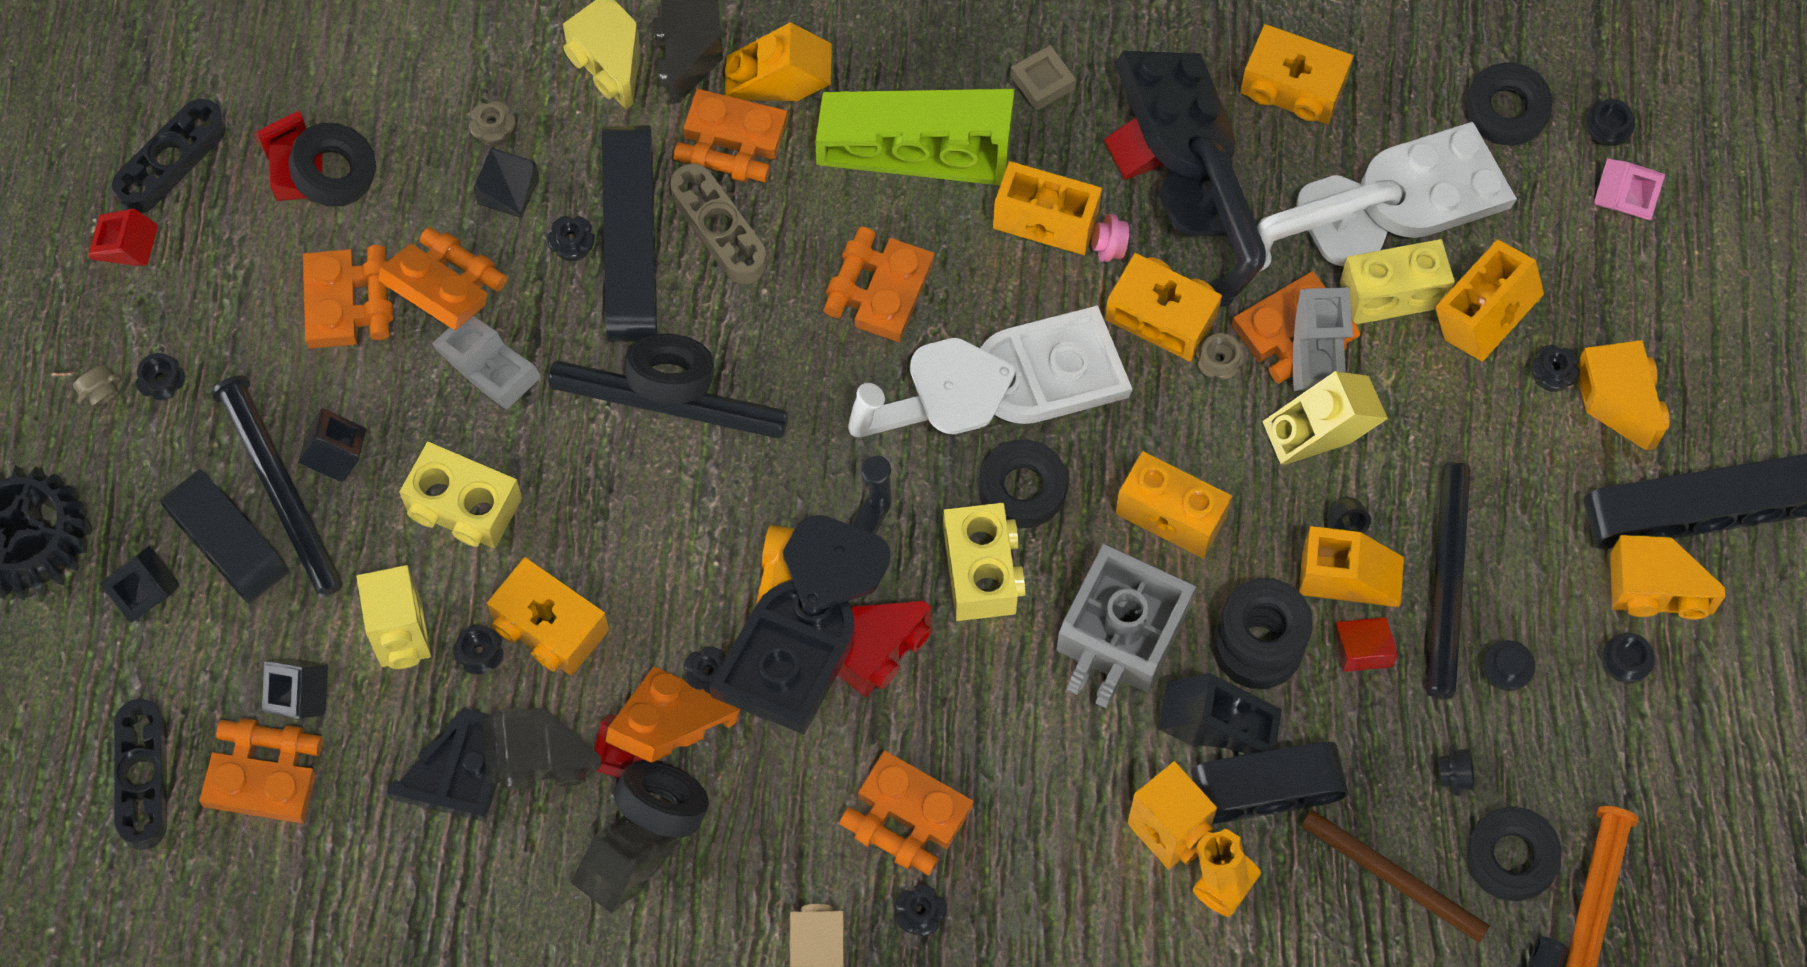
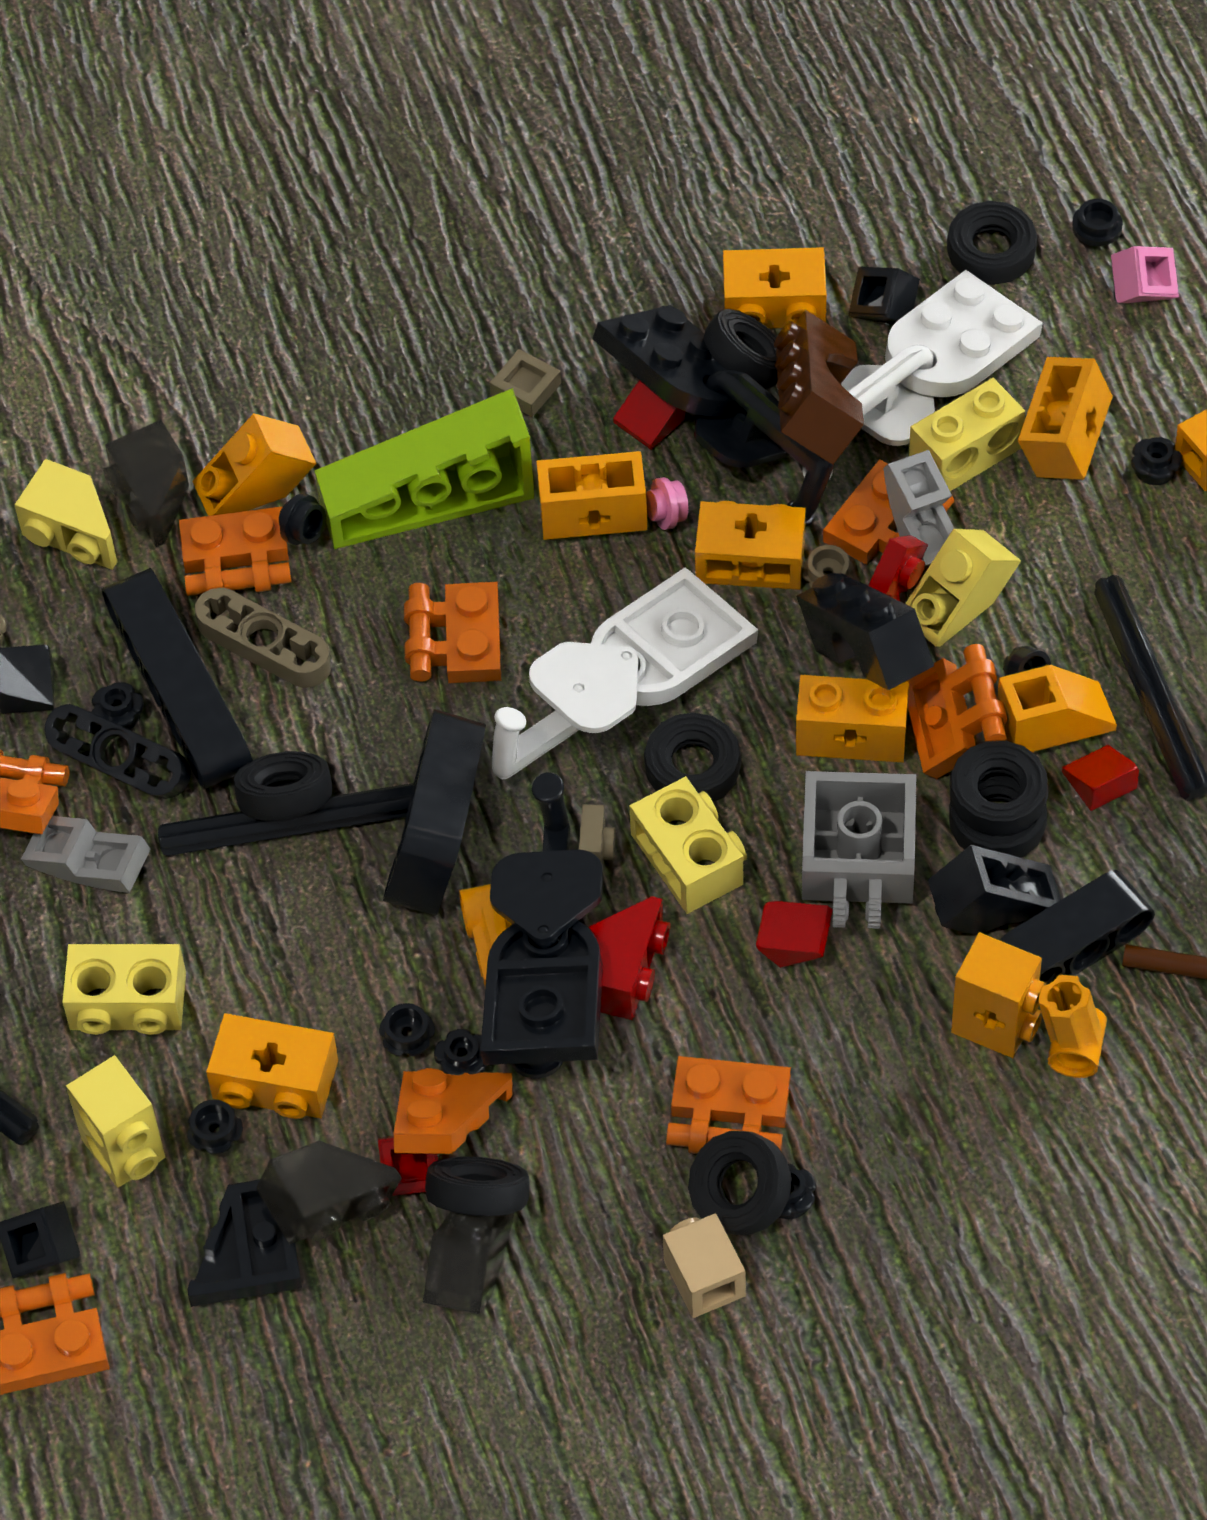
camera: 20 degrees left, 10 degrees down
(570, 286) = (137, 743): none -> black beam
(673, 618) = (406, 1017): none -> black plate
(783, 444) = (436, 813): none -> black beam
(794, 132) = (302, 520): none -> black plate
(905, 526) = (595, 835): none -> dark tan plate
(907, 894) = (772, 1184): none -> black tyre
(1032, 679) = (793, 932): none -> red slope
(1218, 432) = (865, 623): none -> black arch
(1229, 132) = (743, 346): none -> black tyre
(1251, 532) = (940, 713): none -> orange plate
(1263, 213) = (812, 401): none -> reddish brown arch
(1273, 385) = (899, 566): none -> red plate
(1389, 117) = (883, 294): none -> black slope

